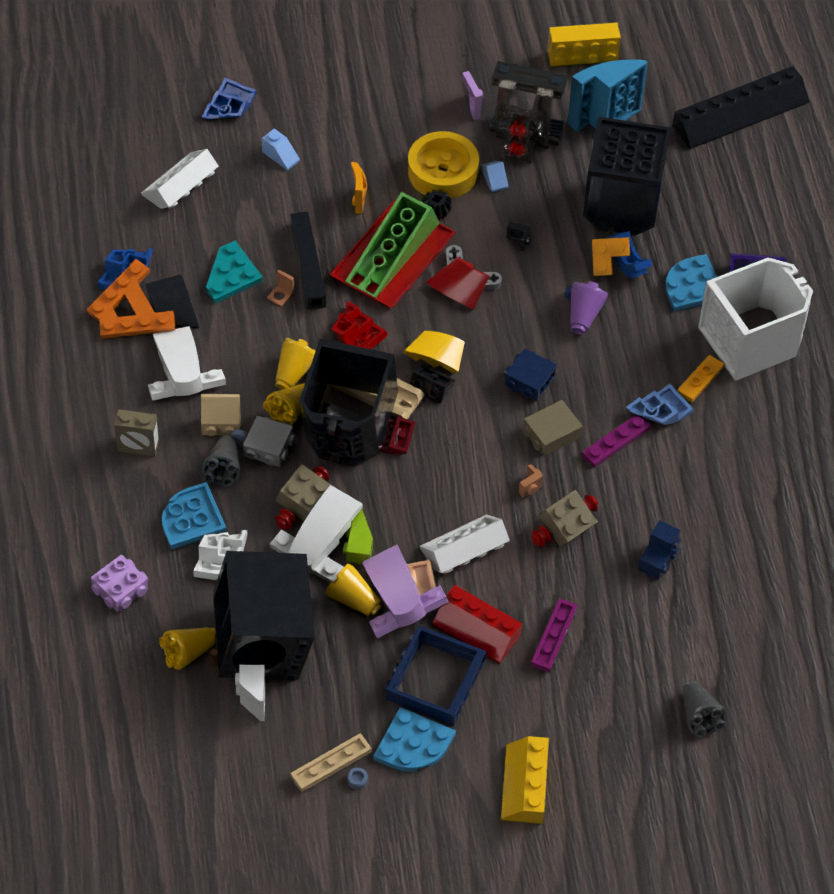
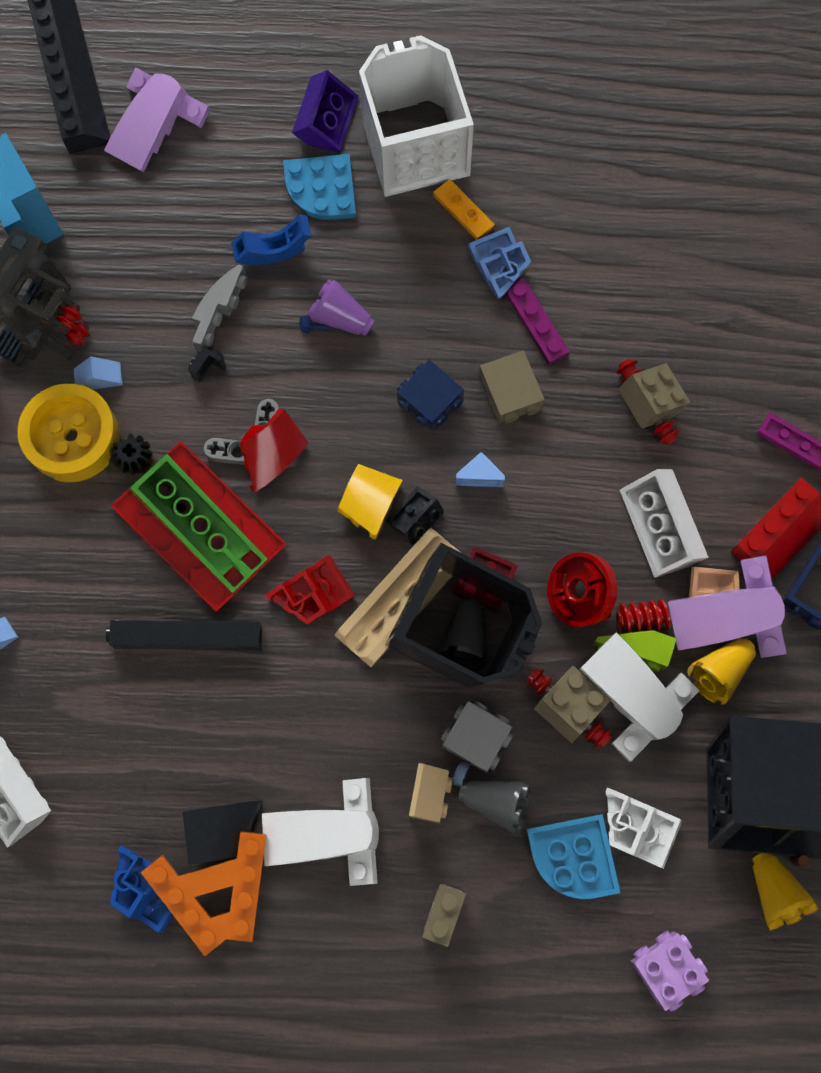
camera: 75 degrees left, 20 degrees up
(231, 273) = (180, 741): teal plate -> none
(284, 404) = (422, 697): yellow cone -> none
(285, 285) = (221, 672): nougat bracket -> none
(293, 362) = (359, 683): yellow cone -> none
(360, 188) = (97, 547): light orange plate -> none
(382, 532) = (642, 615): none -> red piece
(392, 487) = (599, 593): none -> red piece
(476, 416) = (480, 473): none -> light blue slope
(531, 483) = (591, 429): nougat bracket -> none
(562, 229) = (218, 300): none -> light grey slope
(604, 251) = (262, 266): light orange plate -> none
(625, 175) = (172, 202): black container -> none
(661, 550) = (708, 306): dark blue brick -> none
(716, 165) = (151, 117): none -> lavender slope

